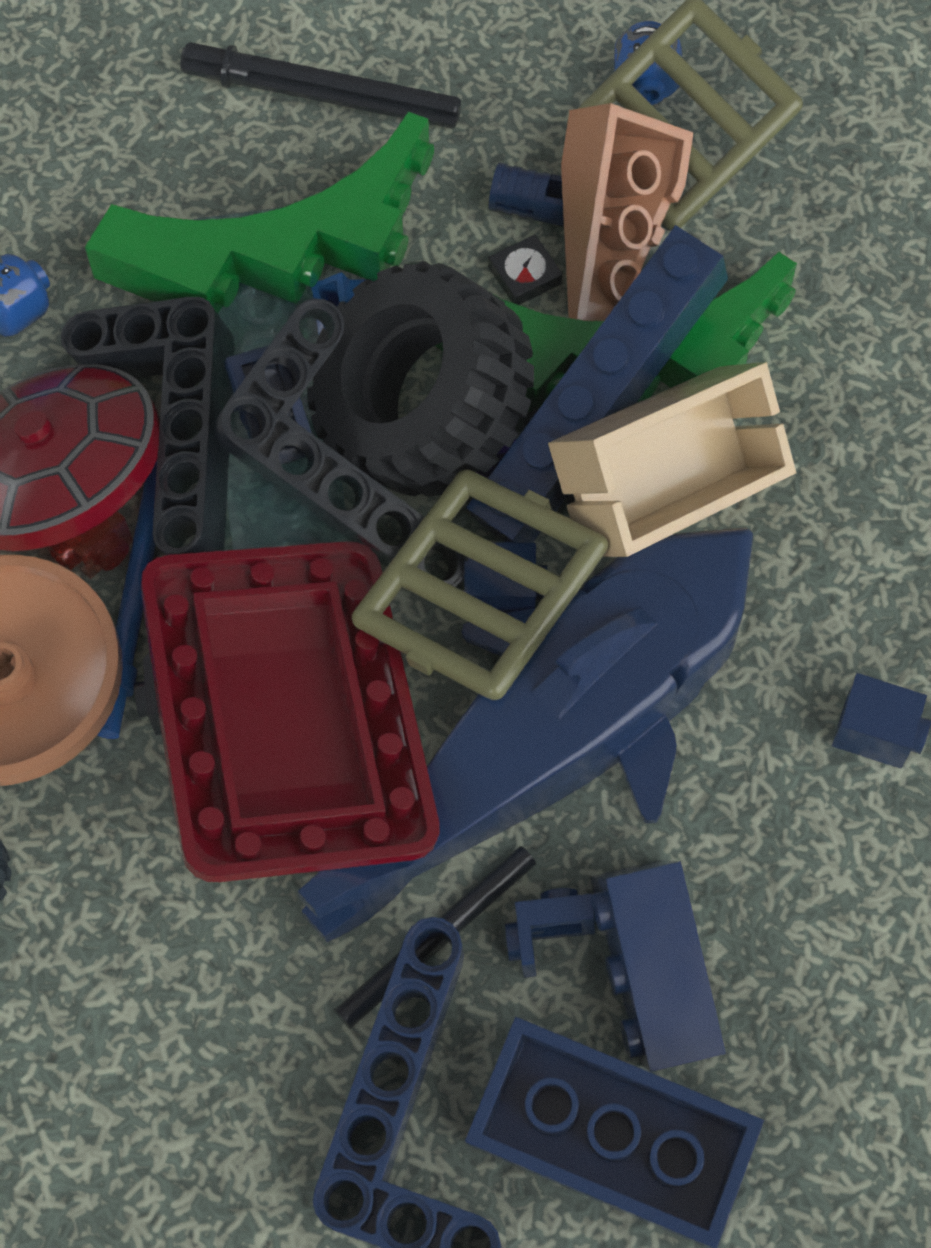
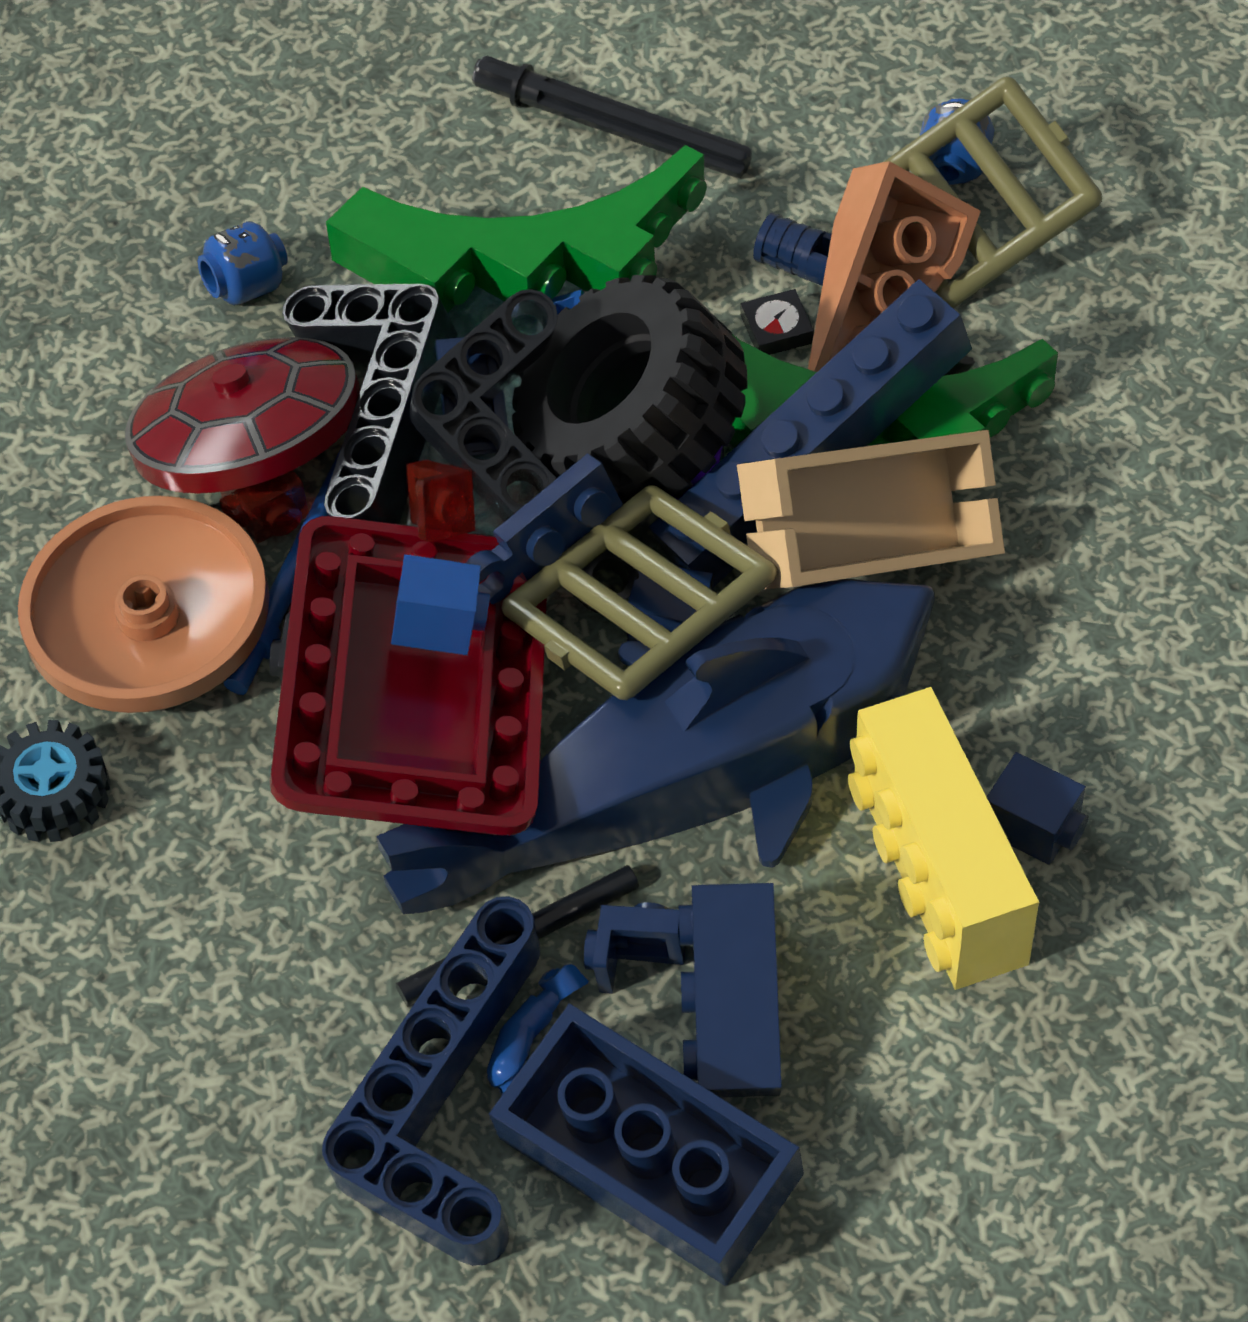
camera: 15 degrees right, 10 degrees down
(264, 517) = (440, 499): none -> clear red bracket
(296, 635) = (438, 605): none -> blue brick
(377, 536) = (547, 526): none -> dark blue plate
(460, 1041) = (527, 1022): none -> blue arm
(812, 773) = (942, 839): none -> light yellow brick

